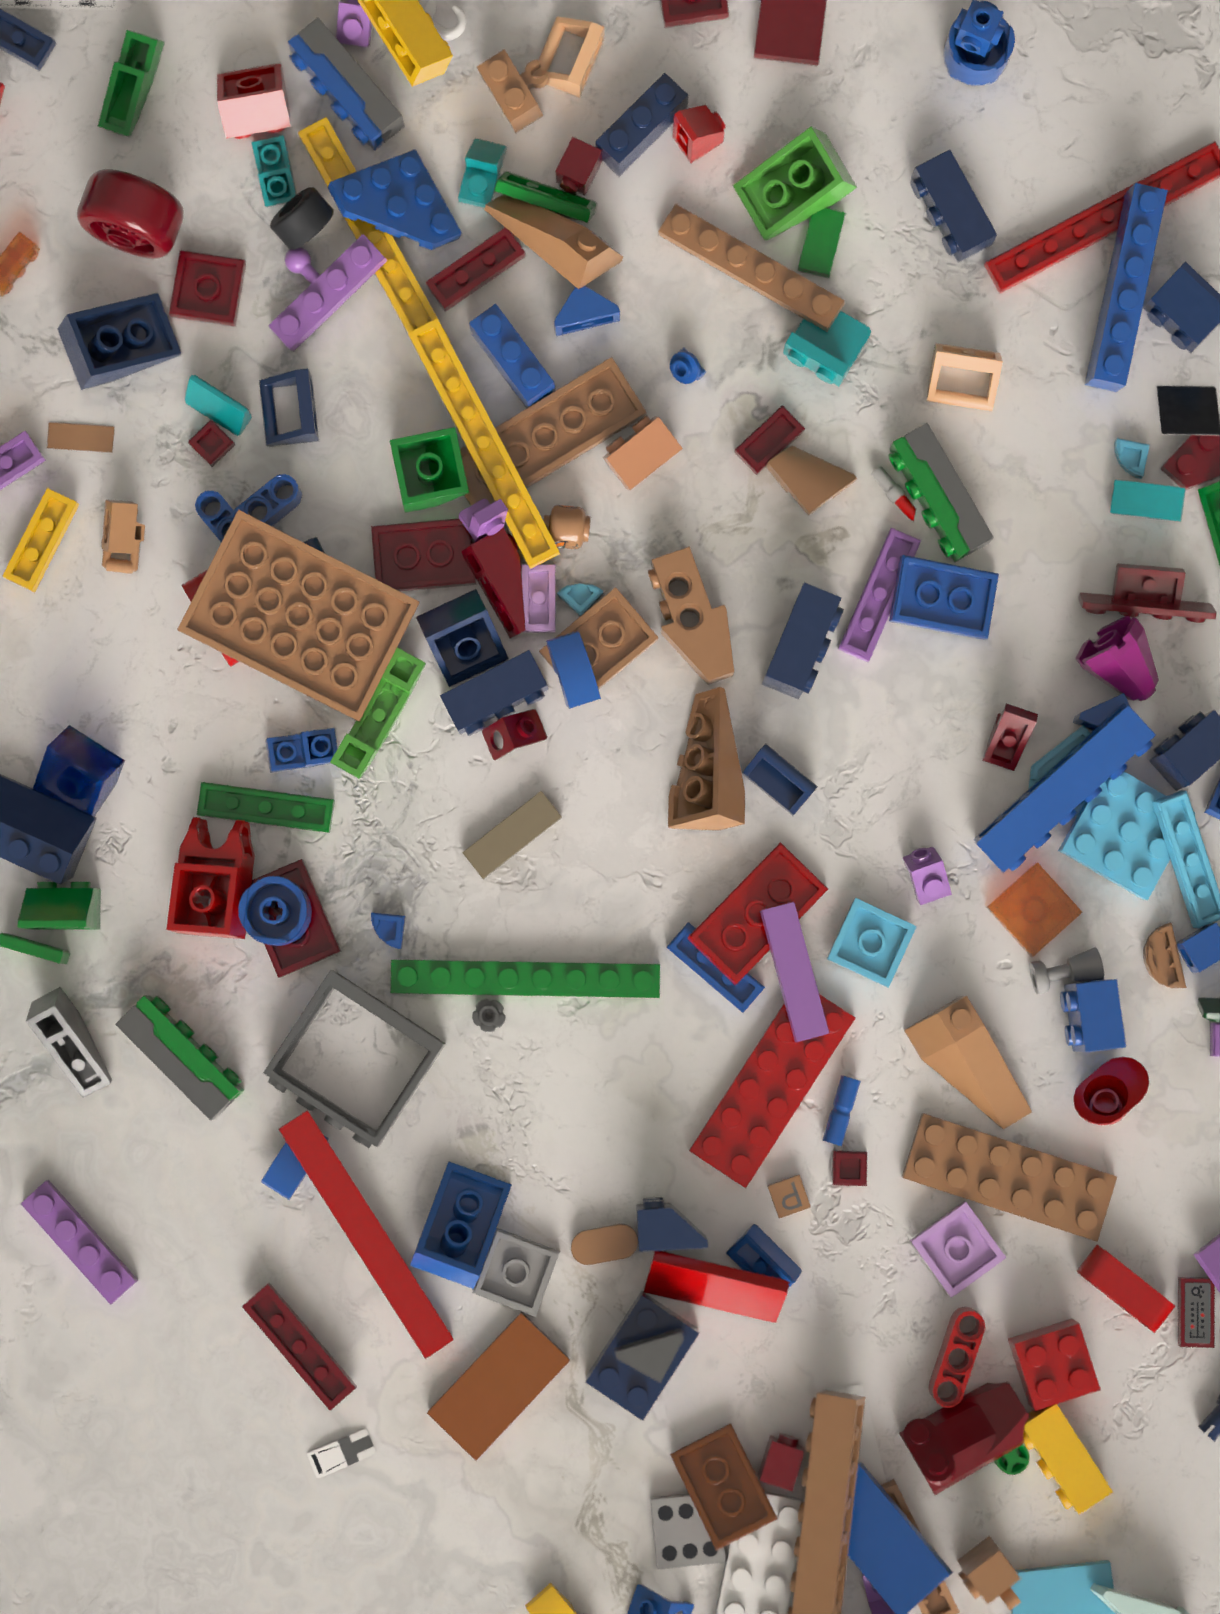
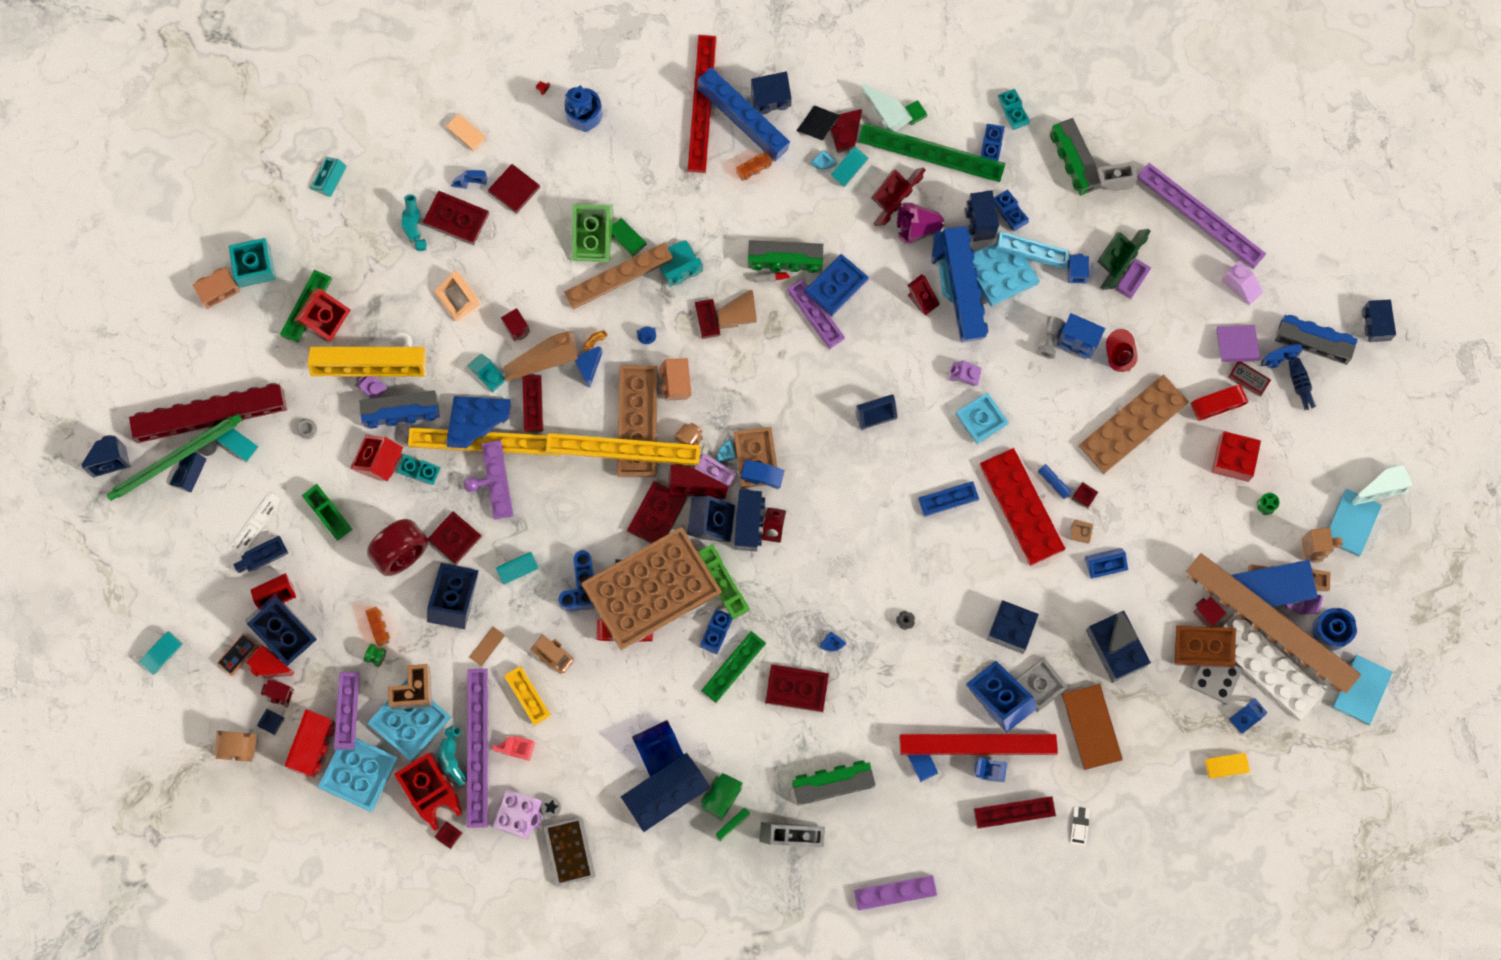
camera: 60 degrees left, 10 degrees down
(211, 443) = (533, 583): dark red tile -> none
(212, 874) = (750, 710): red brick -> none
(264, 895) = (790, 677): blue brick -> none
(302, 218) = (453, 468): black tyre -> none
(307, 409) = (547, 524): dark blue tile -> none
(310, 1099) = (876, 668): dark grey window -> none
(340, 1274) = (990, 770): none -> blue bracket
(429, 469) = (618, 483): green slope -> none
(484, 518) = (661, 472): medium lavender bracket -> none
(511, 356) = (588, 411): blue brick -> none
(512, 835) = (823, 555): dark tan tile -> none
(513, 89) = (457, 331): medium nougat brick -> none
(525, 978) = (897, 592): green plate -> none
(546, 196) = (520, 348): green tile -> none
(574, 1180) = (1012, 627): none -> dark blue brick
(604, 1244) = (1052, 633): medium nougat tile -> none
(632, 294) = (589, 344): none -> clear yellow tile
(641, 124) = (515, 282): dark blue brick -> none
(666, 1228) = (1061, 596): dark blue slope -> none
(697, 131) = (537, 260): red slope -> none
(707, 643) = (790, 405): medium nougat brick -> none
(710, 777) = (854, 444): medium nougat wedge -> none
(716, 1286) = (1105, 589): red tile -> none
(735, 932) = (935, 462): red tile -> none
(794, 972) = (975, 460): medium lavender tile -> none
(803, 641) = (817, 360): dark blue brick -> none
(953, 206) = (651, 167): dark blue brick -> none
(957, 1374) = (1204, 489): red beam -> none
(958, 1249) = (1154, 467): lavender plate -> none
(966, 359) = (728, 205): light nougat tile -> none
(966, 1057) = (1063, 407): medium nougat wedge -> none
(966, 1436) = (1246, 516): dark red slope -> none
(1034, 909) = (1012, 335): clear orange plate -> none
(1055, 357) = (754, 166): none -> clear orange piece
(1064, 1459) = (1283, 479): yellow brick -> none
(1162, 957) = (1071, 291): medium nougat tile -> none

